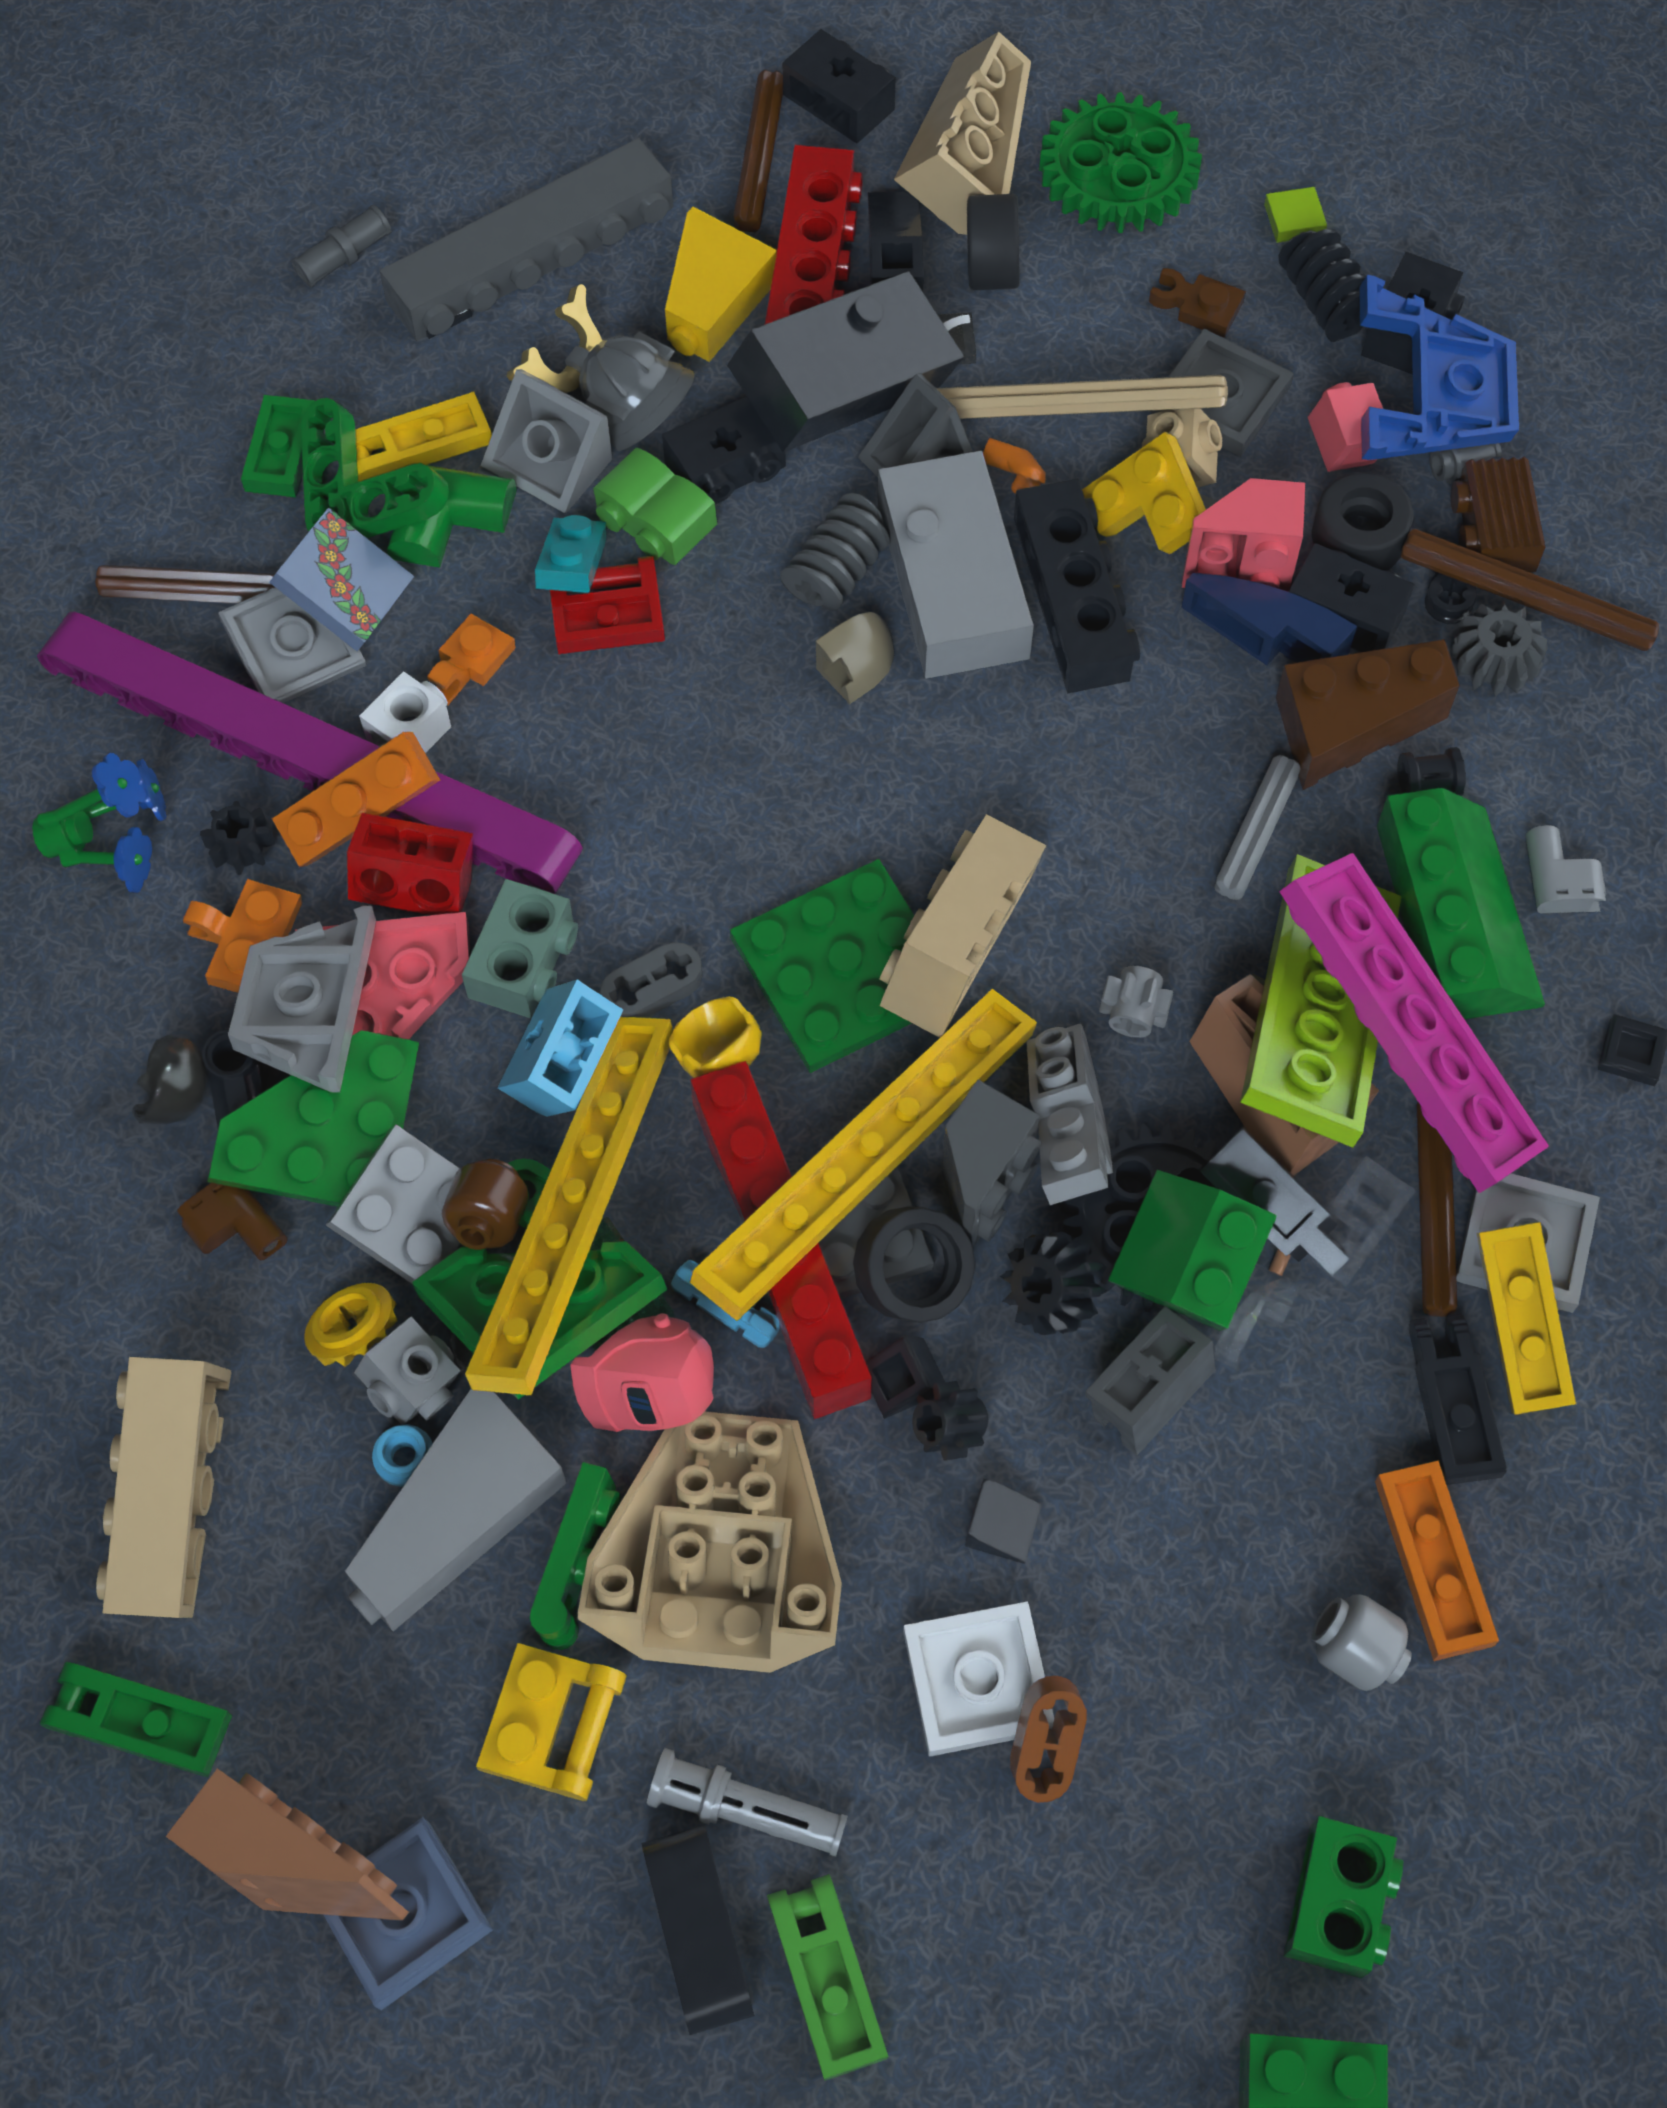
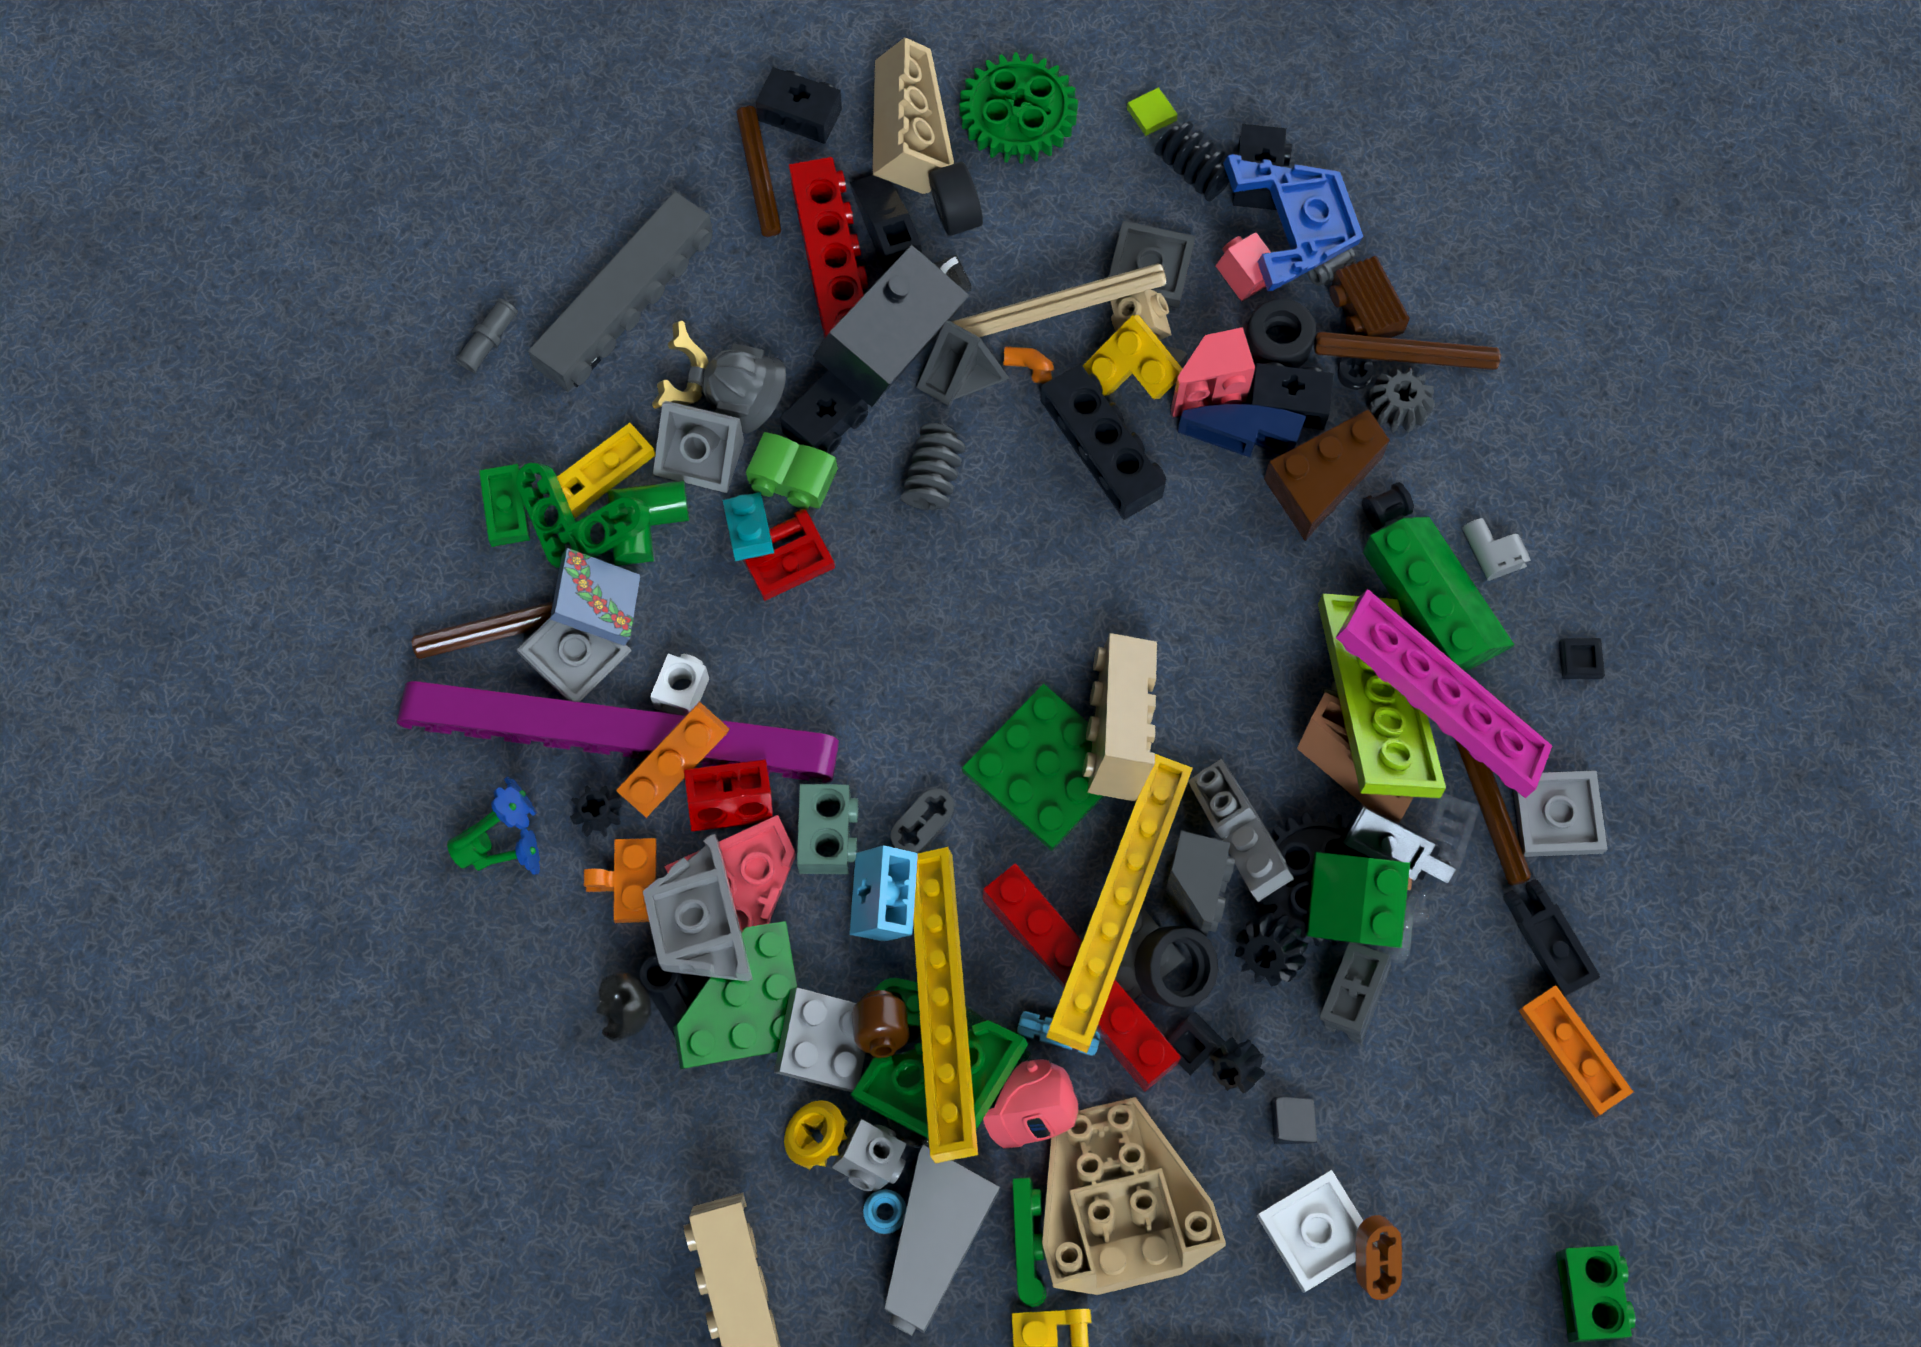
camera: 20 degrees left, 5 degrees up
(223, 1211) = (694, 1084): reddish brown piece -> none
(470, 653) = (704, 620): orange plate -> none
(714, 284) = (770, 286): yellow slope -> none
(715, 1037) = (985, 851): yellow hair -> none
(855, 655) = (973, 539): dark tan brick -> none
(954, 564) = (1016, 451): light grey brick -> none
(1136, 1001) = (1253, 732): light grey gear -> none
(1204, 304) = (1114, 198): reddish brown plate -> none
(1257, 827) = (1286, 579): light grey axle -> none
(1362, 1642) = (1549, 1122): light grey head -> none
(1526, 1318) = (1579, 870): yellow plate -> none

